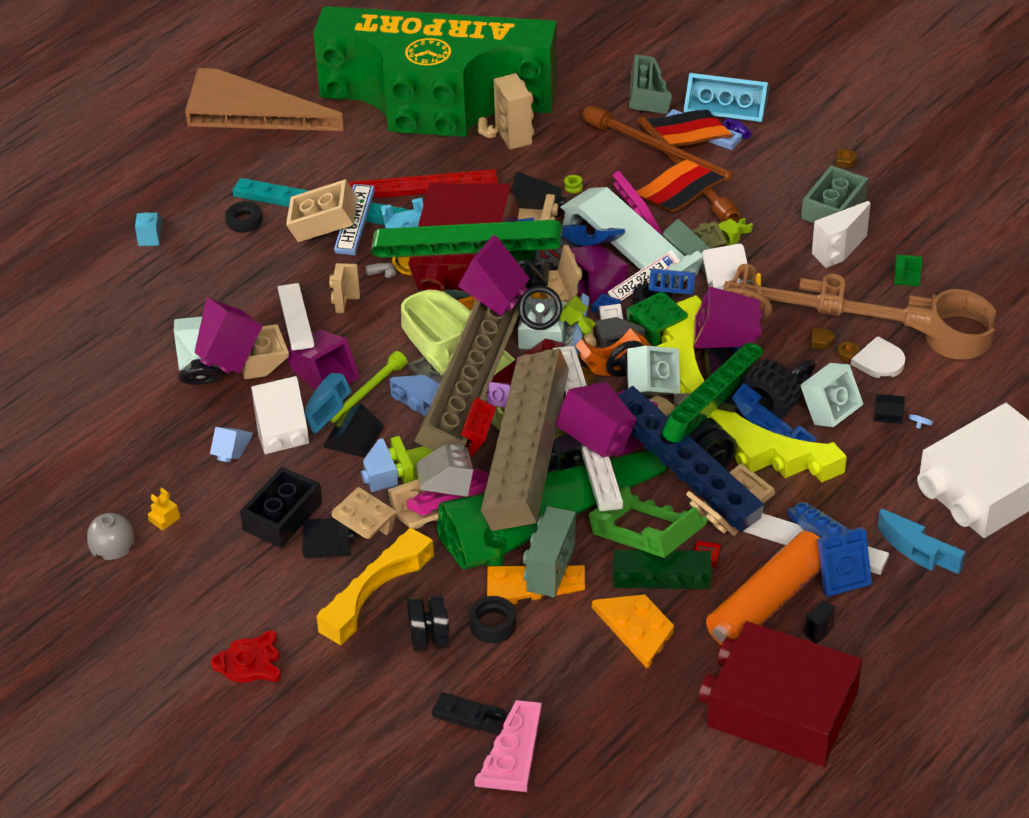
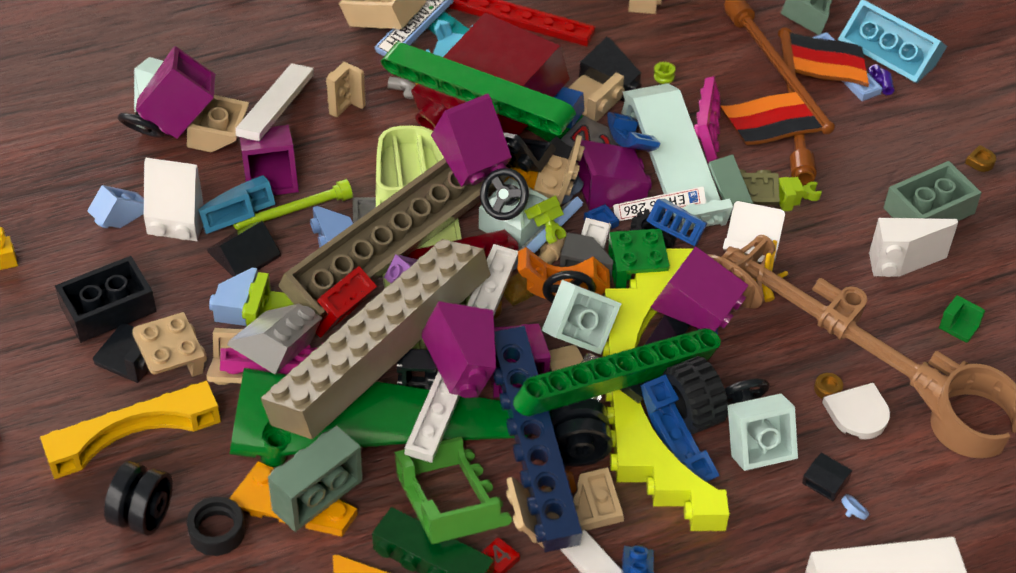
camera: 25 degrees right, 5 degrees up
(822, 338) = (808, 357): pearl gold tile -> none

